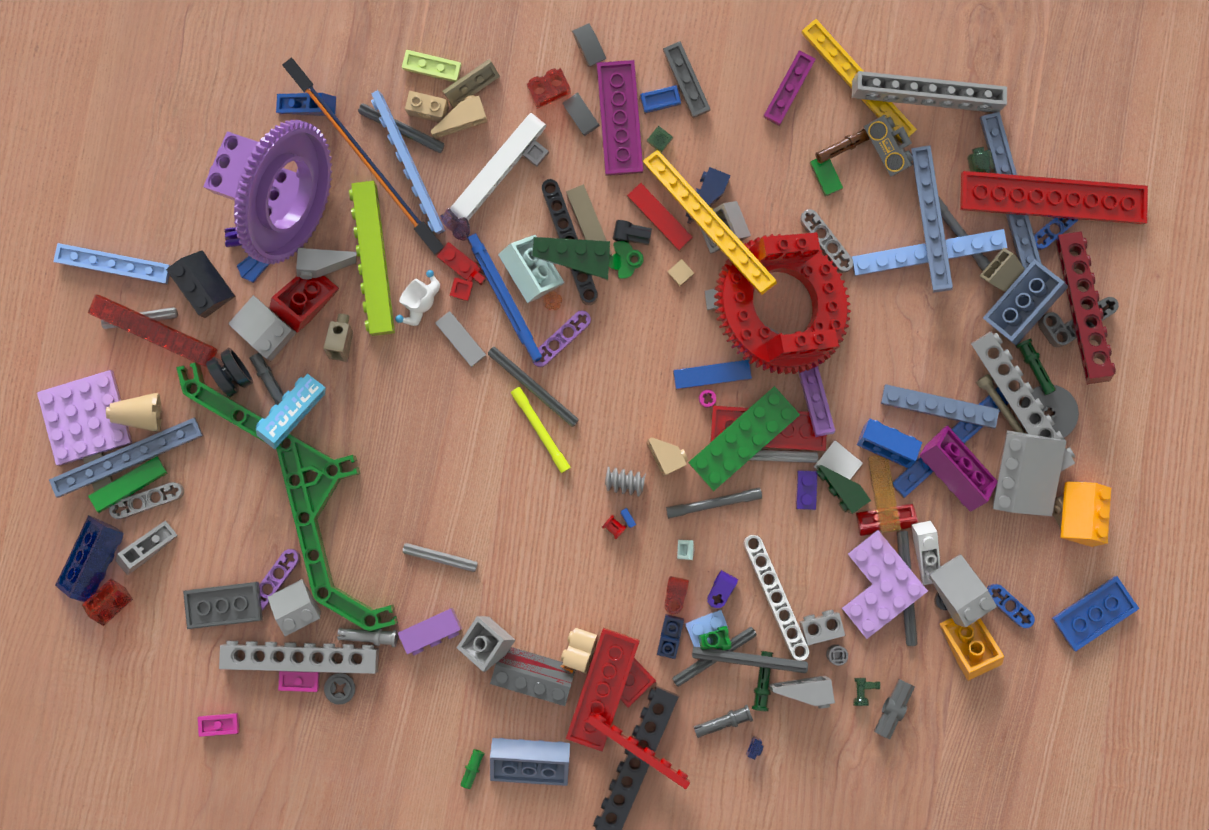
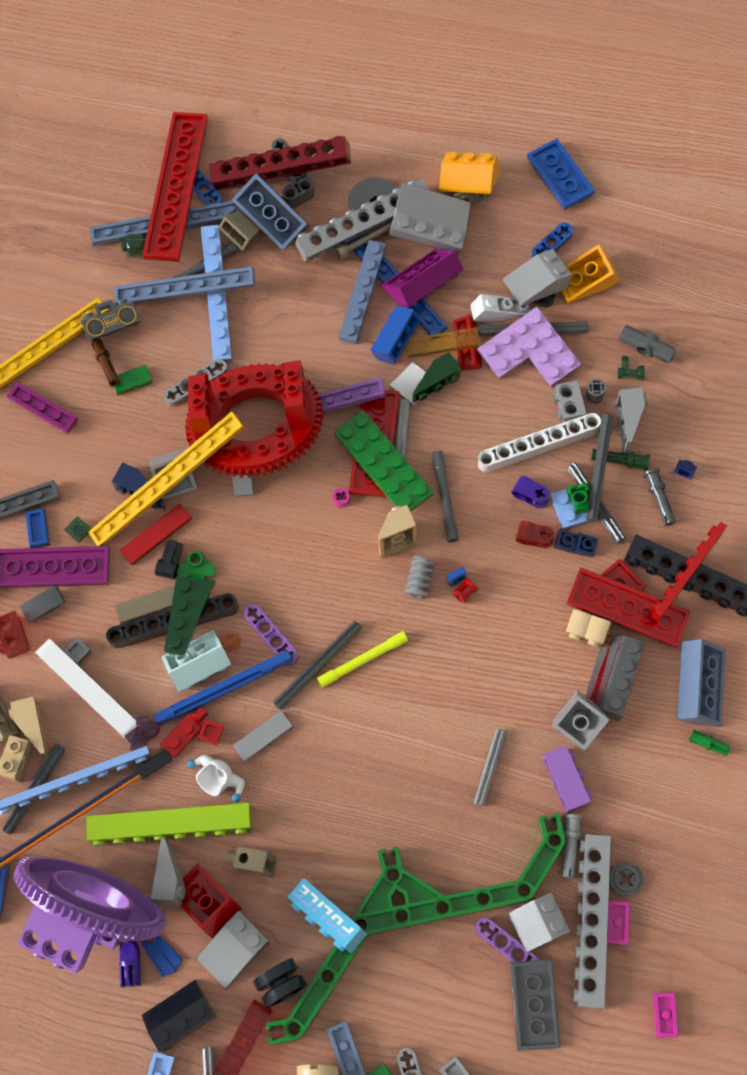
camera: 80 degrees left, 15 degrees down
(267, 377) = (290, 943): dark grey pin -> none
(680, 272) = (214, 517): tan tile -> none
(685, 549) = (490, 524): light aqua slope -> none
(712, 374) = (317, 492): blue tile -> none
(806, 490) = (436, 412): dark purple plate -> none
(929, 92) = (63, 283): light grey brick -> none
(1032, 358) = (323, 212): dark green pin -> none

